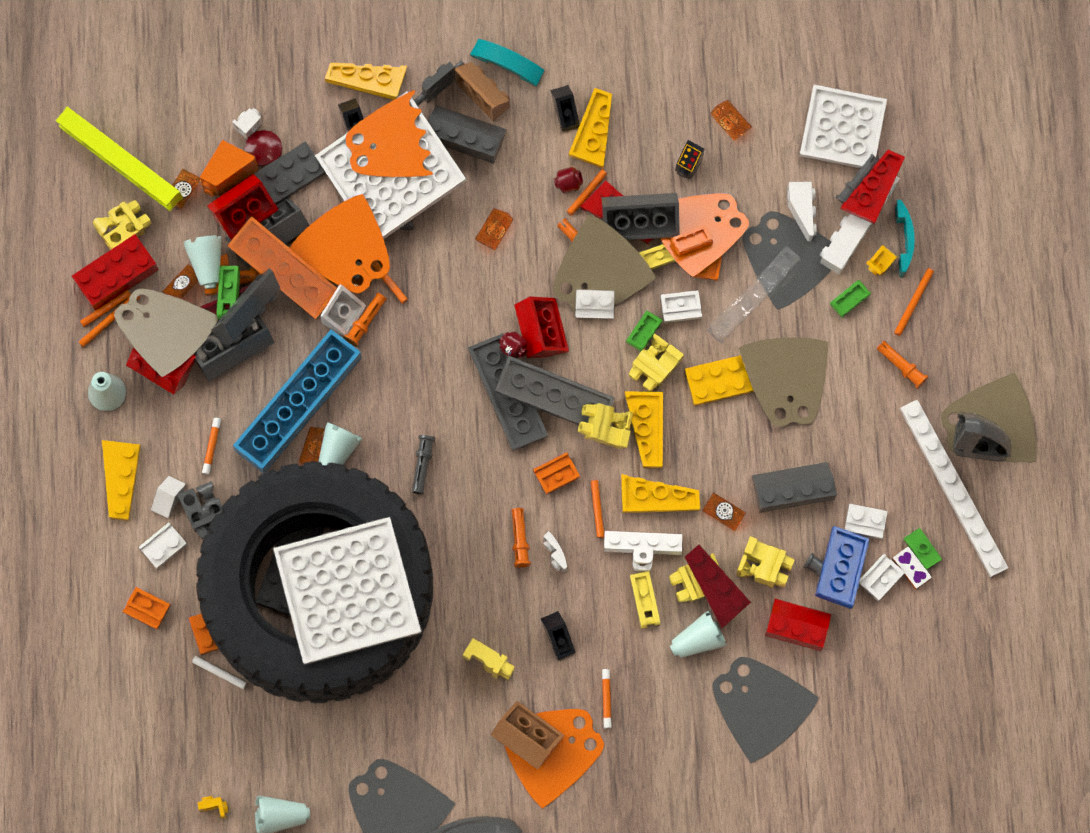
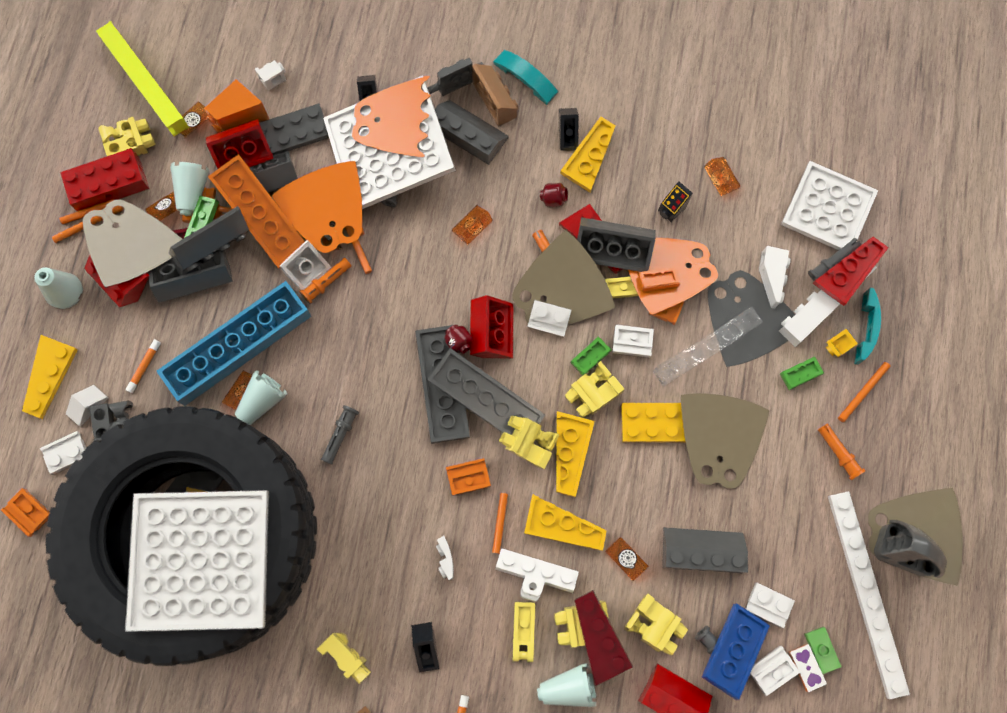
camera: 15 degrees right, 0 degrees up
(264, 146) = (279, 100): dark red dish -> none
(375, 80) = (392, 61): yellow wing -> none
(520, 545) = (413, 542): orange pin -> none
(585, 194) = (567, 212): orange bar -> none

